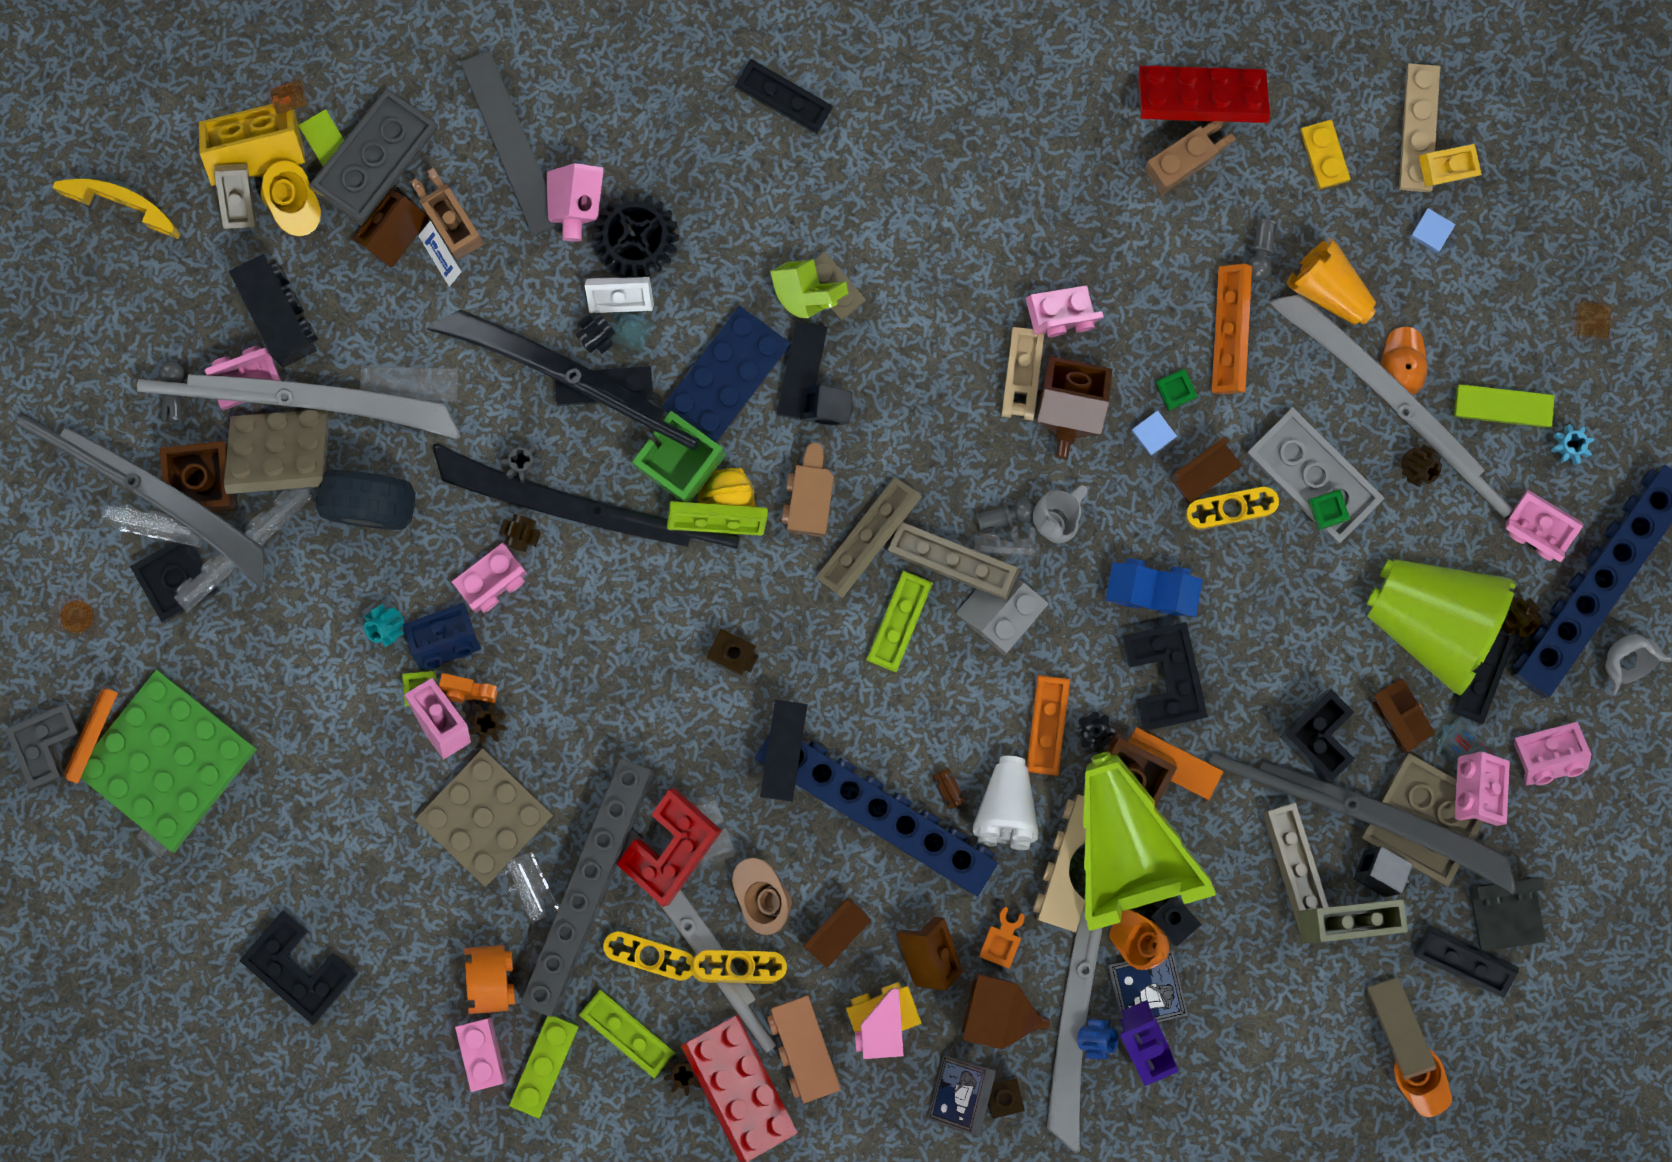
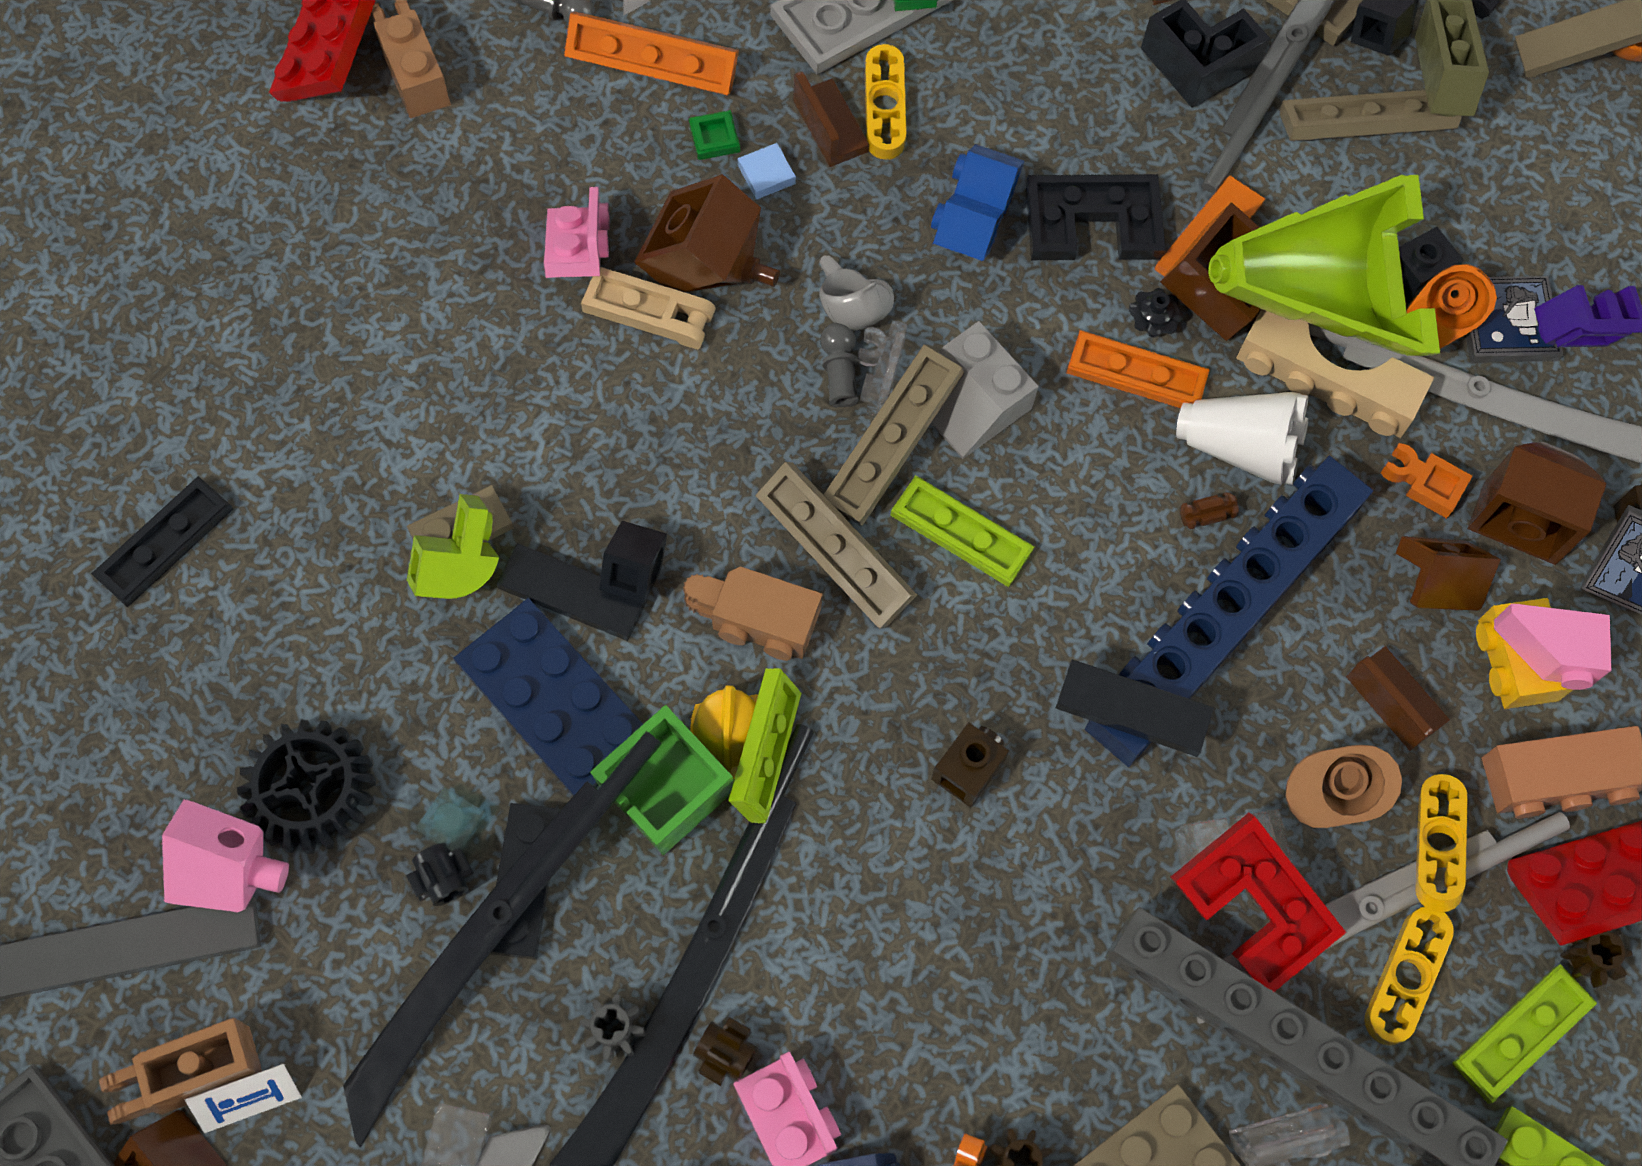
camera: 80 degrees left, 15 degrees down
(619, 294) = (389, 826): white plate -> none
(1097, 1039) = (1577, 384): blue gear -> none

